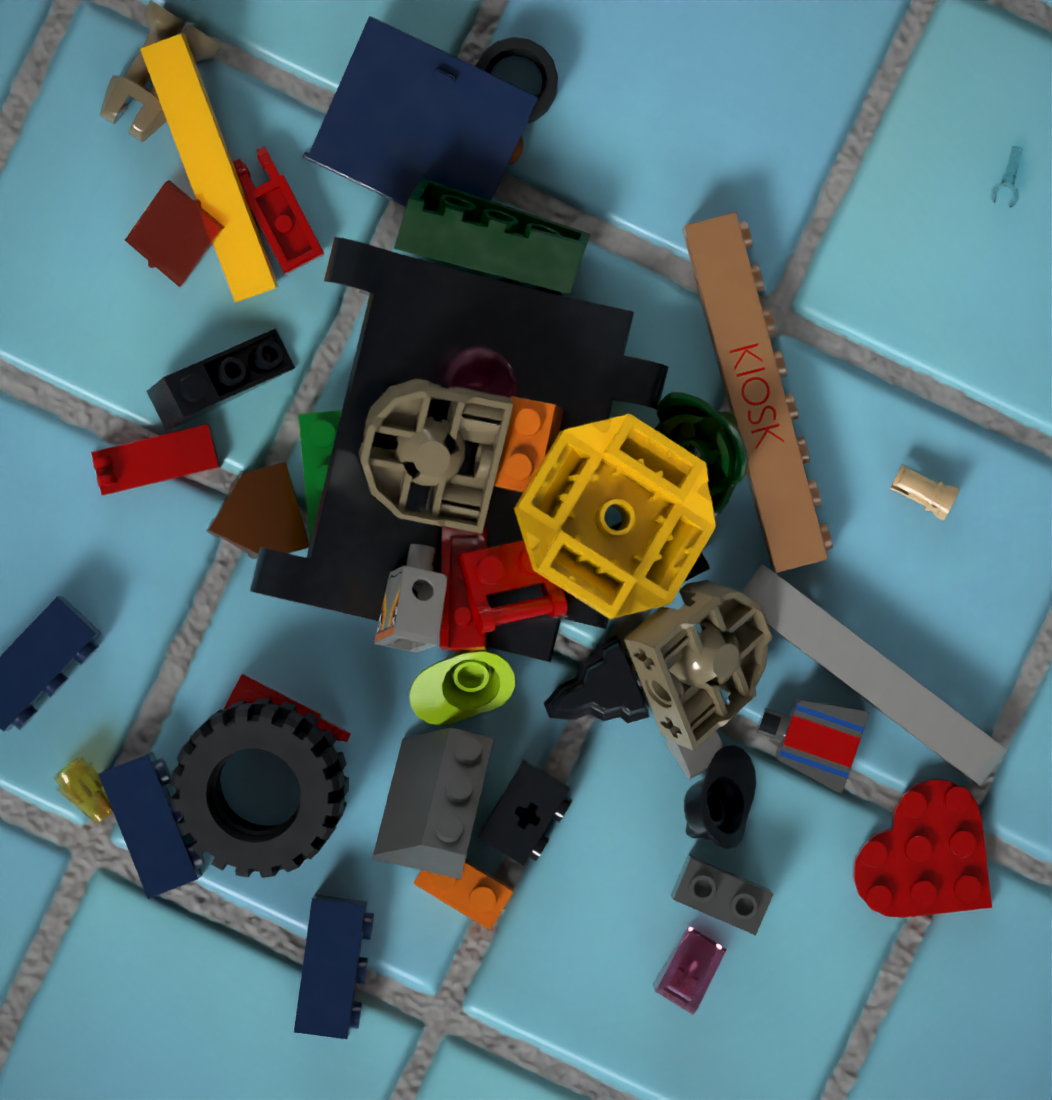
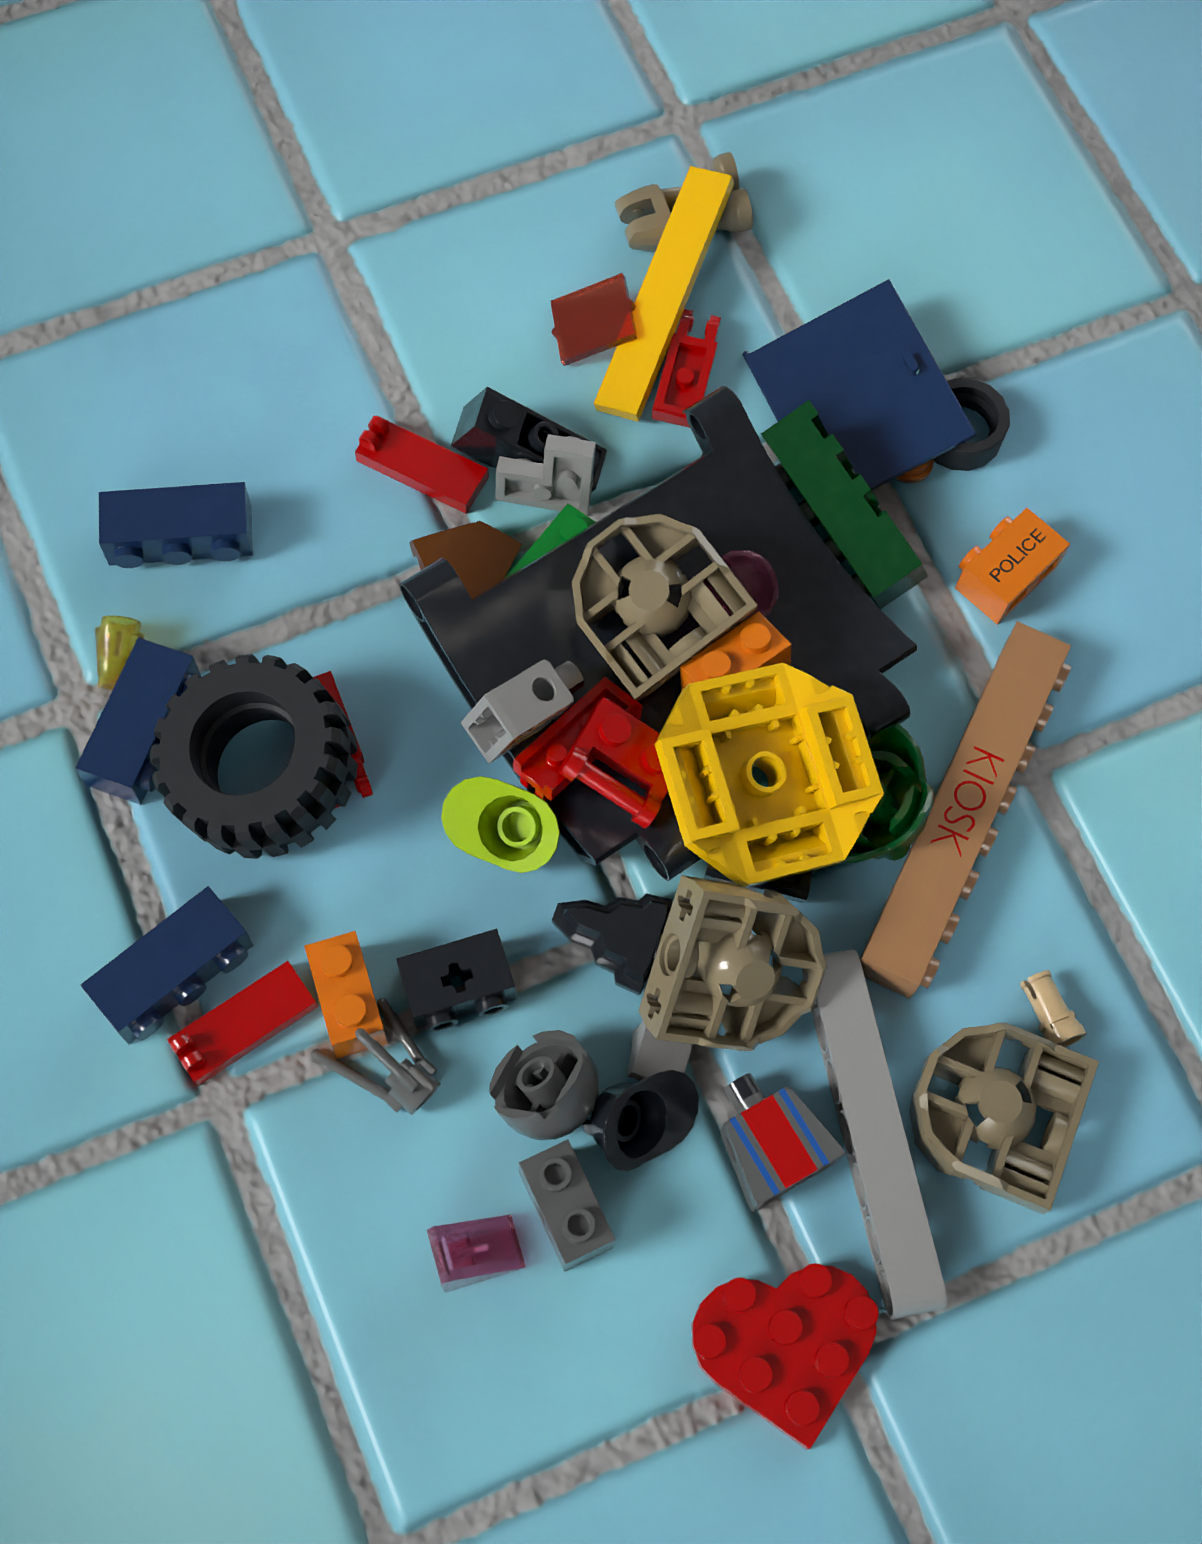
camera: 35 degrees right, 20 degrees down
(271, 391) = (560, 480): none -> light grey plate
(410, 958) = (242, 1023): none -> red hinge
(434, 801) = (390, 897): dark grey slope -> none
(553, 905) = (409, 1083): none -> dark grey plant
(641, 173) = (1011, 564): none -> orange brick
(645, 834) = (546, 1086): none -> dark grey cylinder
(926, 587) = (1008, 1101): none -> dark tan connector

